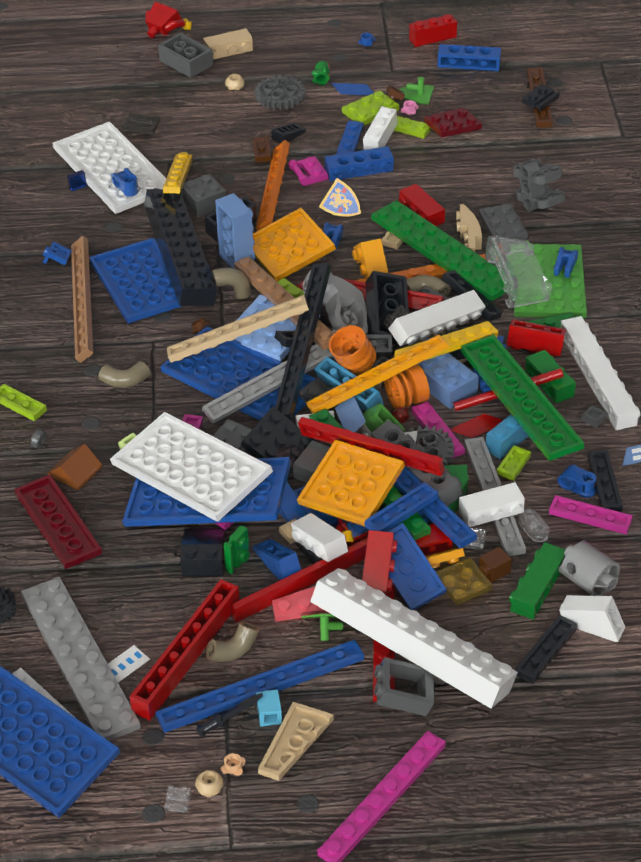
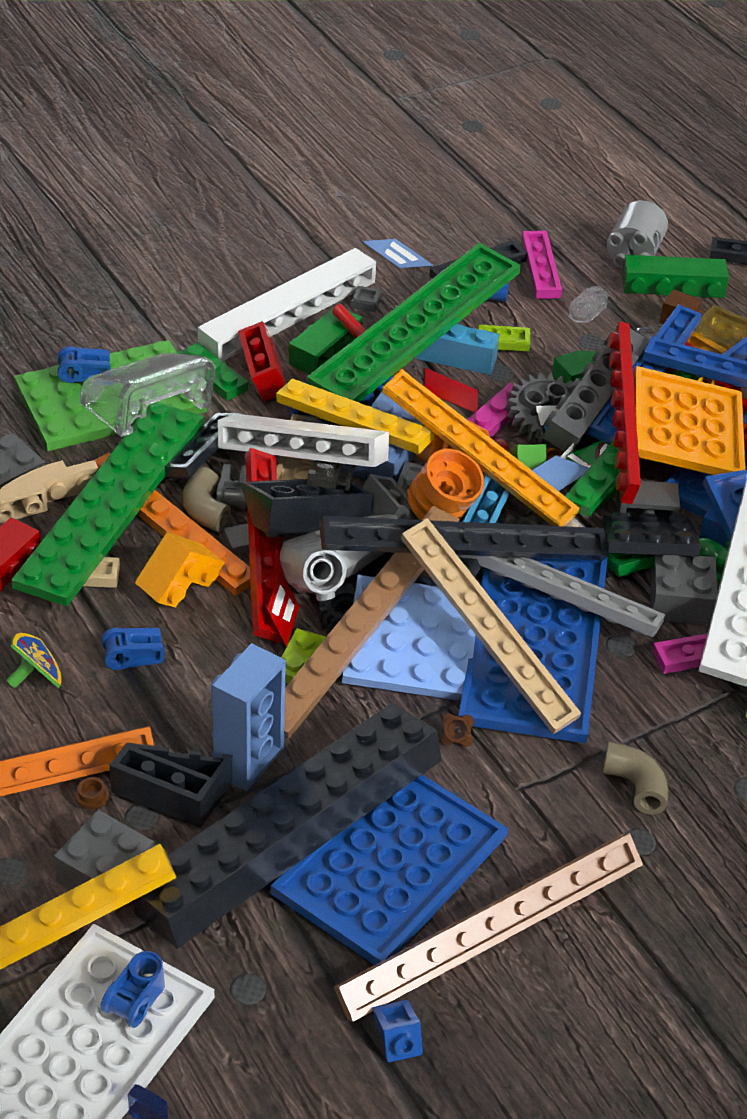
camera: 120 degrees left, 0 degrees up
(234, 278) = (342, 707): dark tan cylinder -> none
(290, 244) = (172, 679): light orange plate -> none
(487, 479) = (570, 339): light grey plate -> none
(491, 504) = (601, 314): white brick -> none
(594, 615) = (694, 225): white slope -> none

